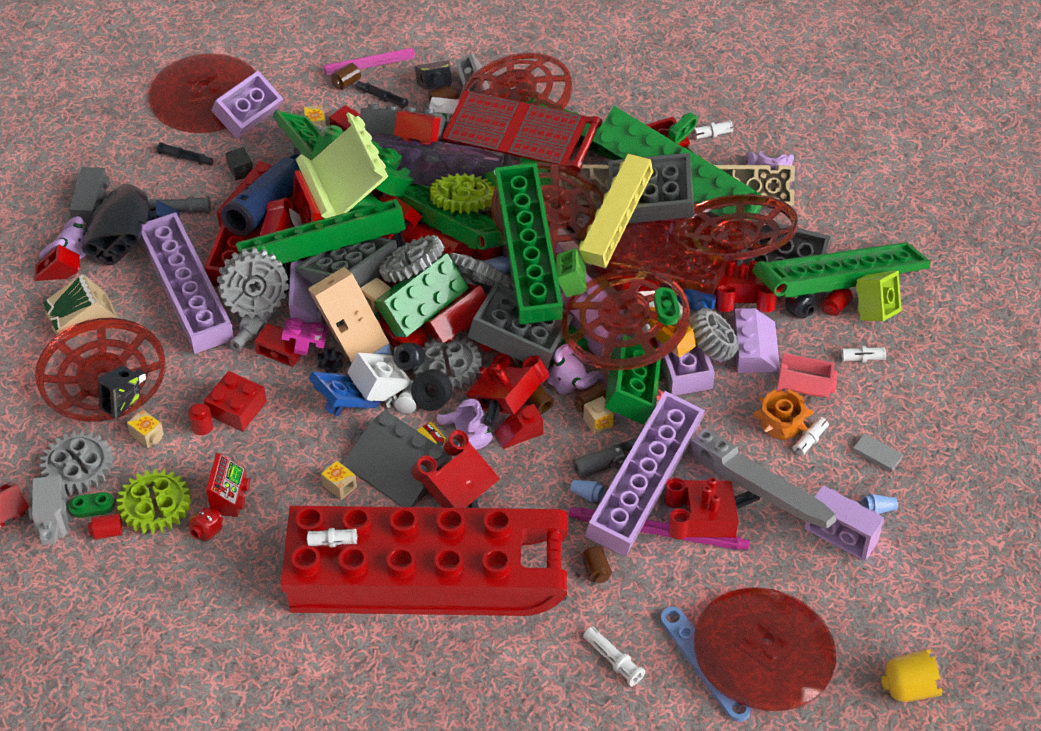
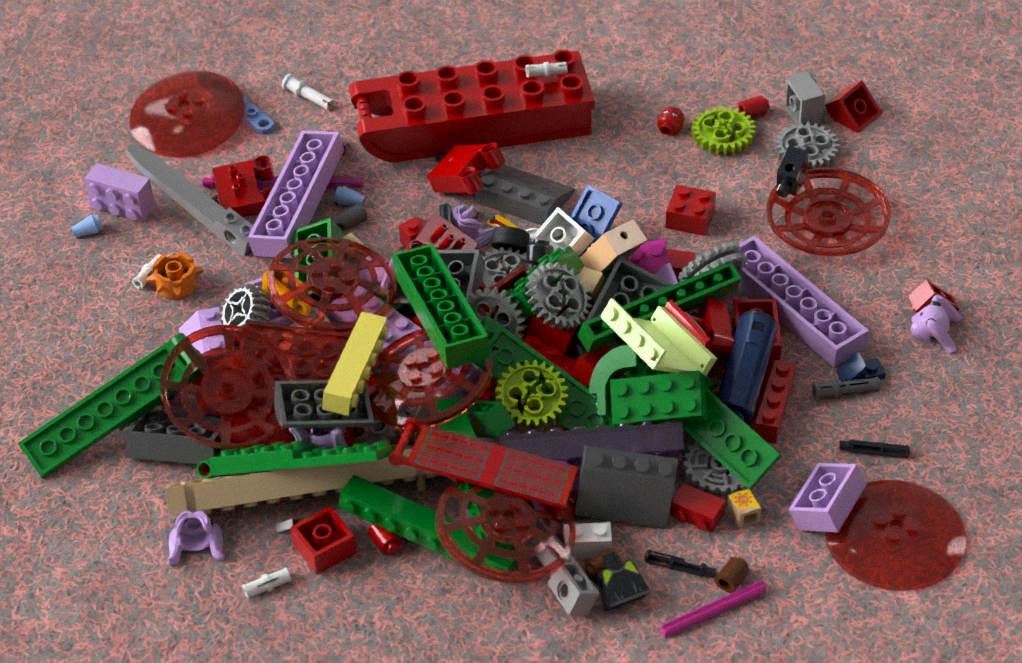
camera: 170 degrees right, 5 degrees down
(77, 303) = (880, 262): slope -> none
(89, 192) = (948, 378): dark grey brick -> none
(91, 505) = (772, 126): green plate -> none
(116, 224) = (893, 334): black panel -> none
(145, 429) = (760, 178): tan brick -> none
(200, 419) = (717, 185): red brick -> none
(227, 486) = (663, 140): red slope -> none
(239, 163) = (804, 439): pearl dark grey brick -> none
(338, 480) = (571, 168): brick -> none
(417, 126) = (602, 435): red brick -> none
(571, 272) = (393, 304): bright green brick -> none
(667, 310) = (289, 267): green plate -> none
(683, 127) = (298, 526): green plate -> none
(807, 376) = (152, 307): coral window -> none
(875, 354) = (95, 354): white pin -> none
(877, 453) = (86, 271): light grey tile -> none
(879, 296) = (76, 388): lime slope -> none
(912, 676) = (69, 103): yellow cylinder -> none

